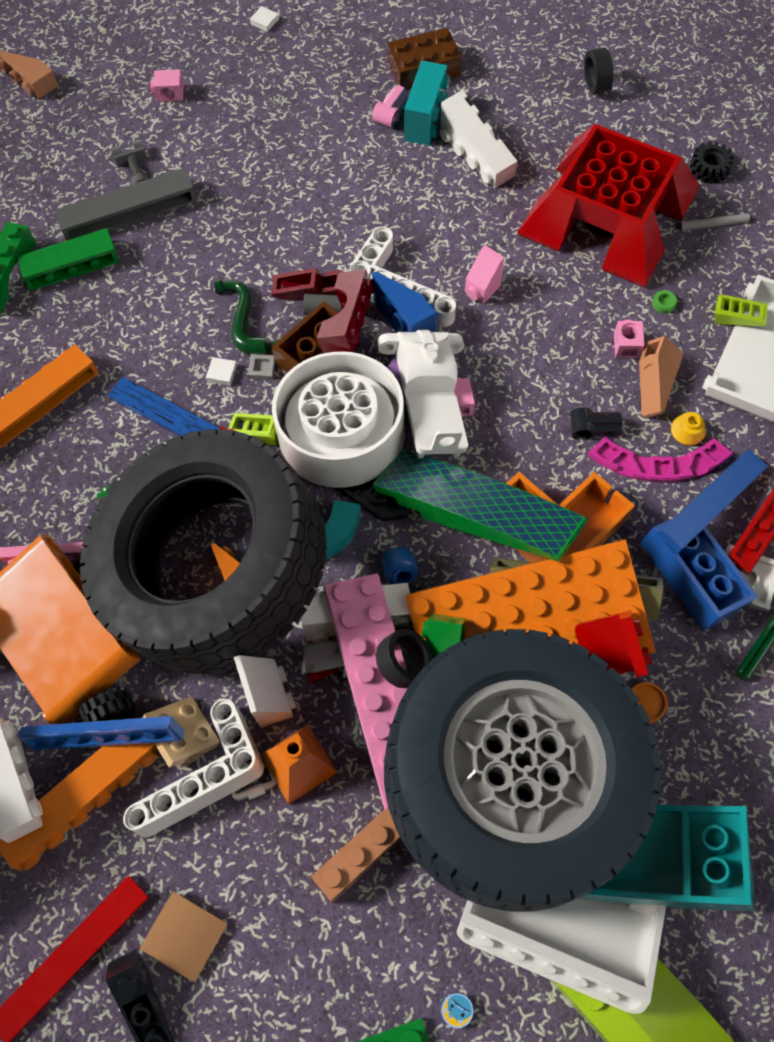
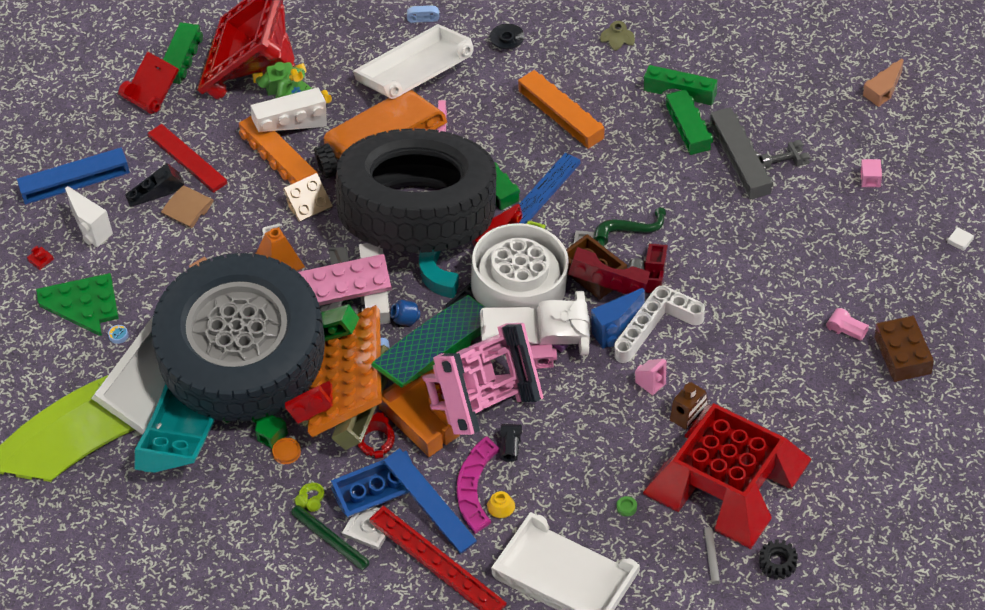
camera: 95 degrees right, 15 degrees down
(102, 733) = (307, 154): blue tile -> none
(204, 778) = (291, 224): white beam -> none
(221, 371) = (582, 216): white tile -> none
(265, 689) = (322, 228): white slope -> none
(388, 664) = (339, 290): black tyre -> none
(424, 103) = (841, 342): teal brick -> none
(475, 141) = (800, 378): white wedge -> none
(524, 239) = (691, 401): none -> reddish brown torso
(579, 462) = (469, 380): none -> bright pink container
(598, 70) = (883, 467): black tyre -> none
(629, 347) = (584, 464): bright pink brick -> none
(657, 374) = (556, 485): nougat slope -> none
(727, 668) = (313, 504): none -> lime piece
(730, 317) = (610, 541): lime slope -> none

